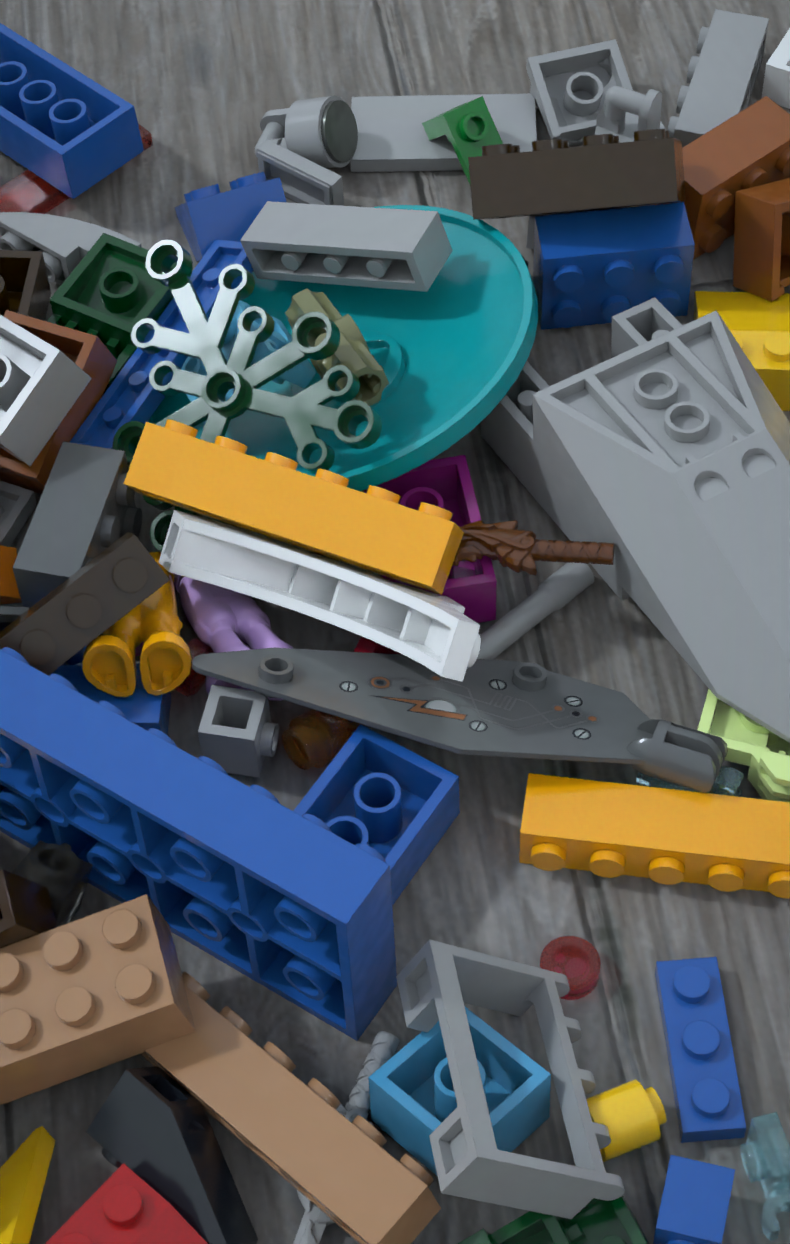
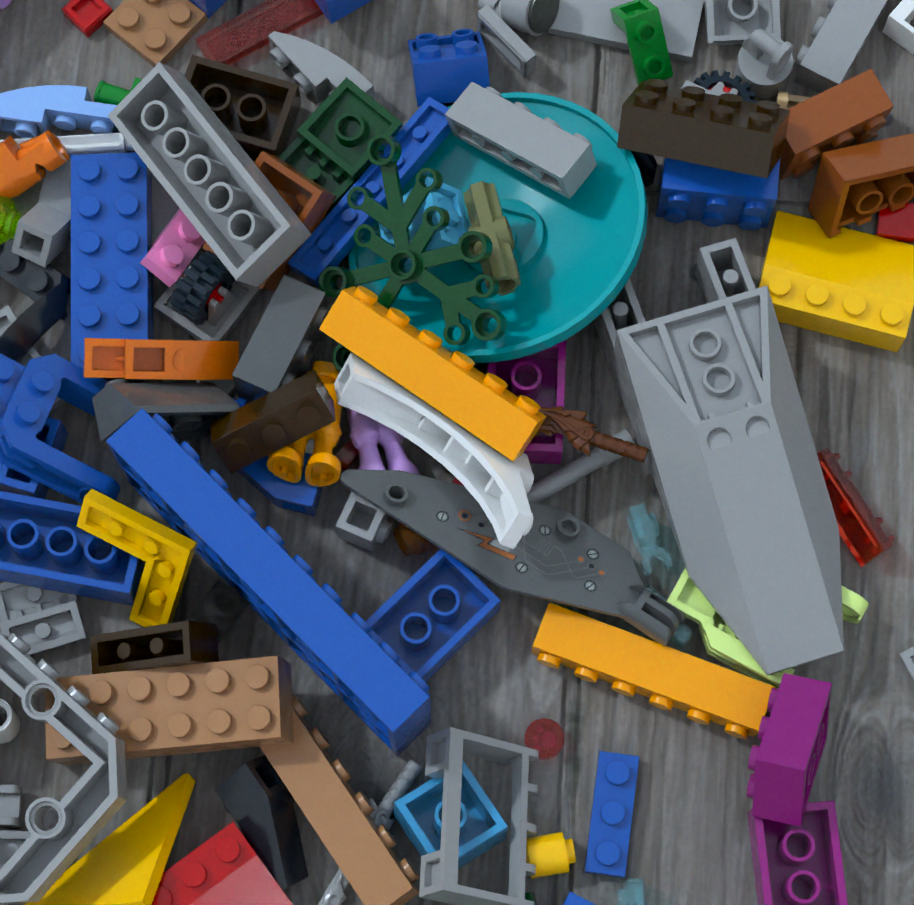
camera: 10 degrees right, 20 degrees up
(634, 672) = (644, 529): none -> clear light blue plate

